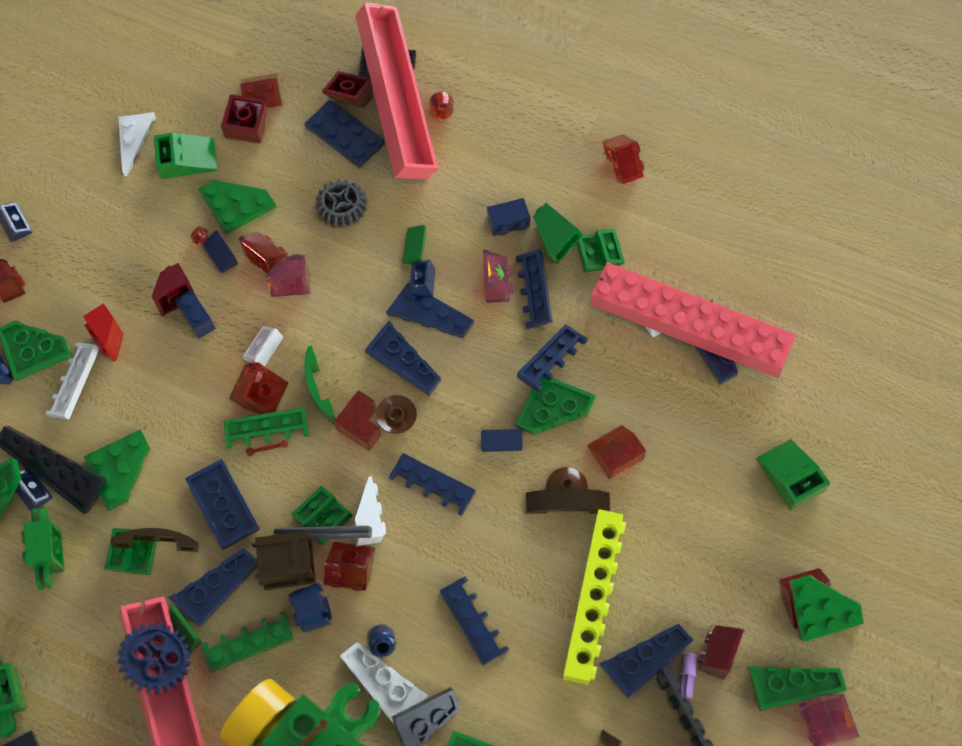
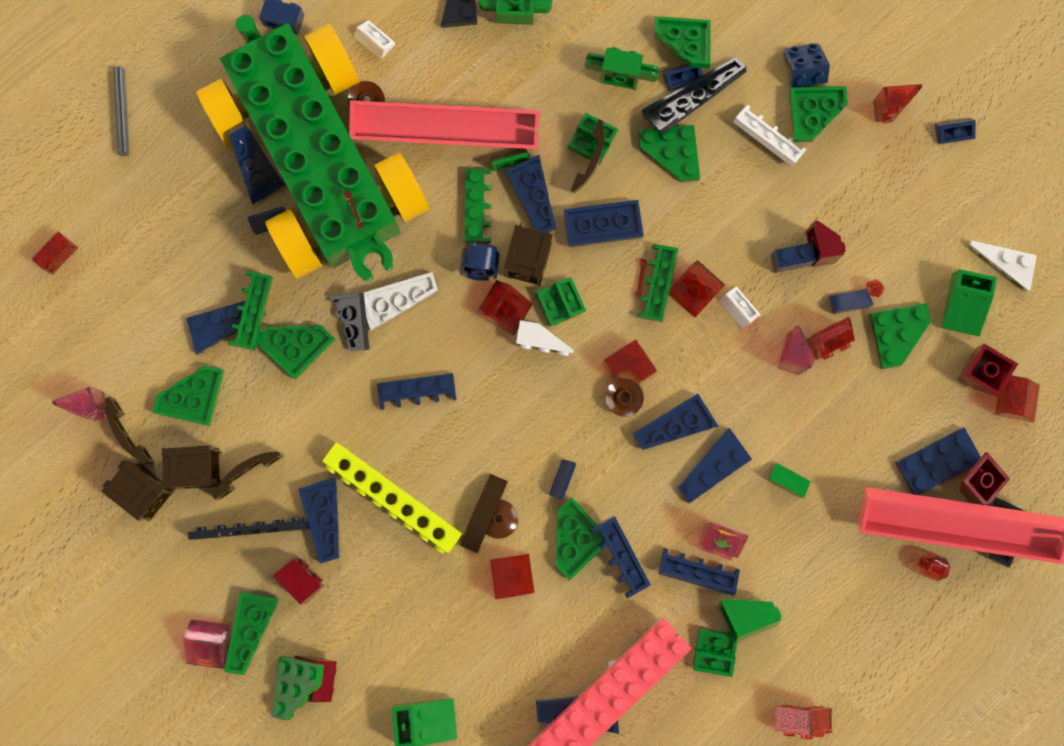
camera: 110 degrees right, 15 degrees up
(104, 331) = (804, 175): red slope -> none
(137, 668) = (478, 106): dark blue gear -> none
(311, 366) = (703, 341): green slope -> none
(330, 532) = (539, 294): dark grey axle -> none
(343, 209) = (872, 418): dark grey gear -> none
(381, 640) = (429, 308): dark blue head -> none
(422, 278) = (749, 473): dark blue slope -> none
(434, 482) = (550, 406): dark blue hinge -> none
(508, 217) = (783, 580): dark blue brick -> none
(688, 674) = (295, 546): lavender axle -> none

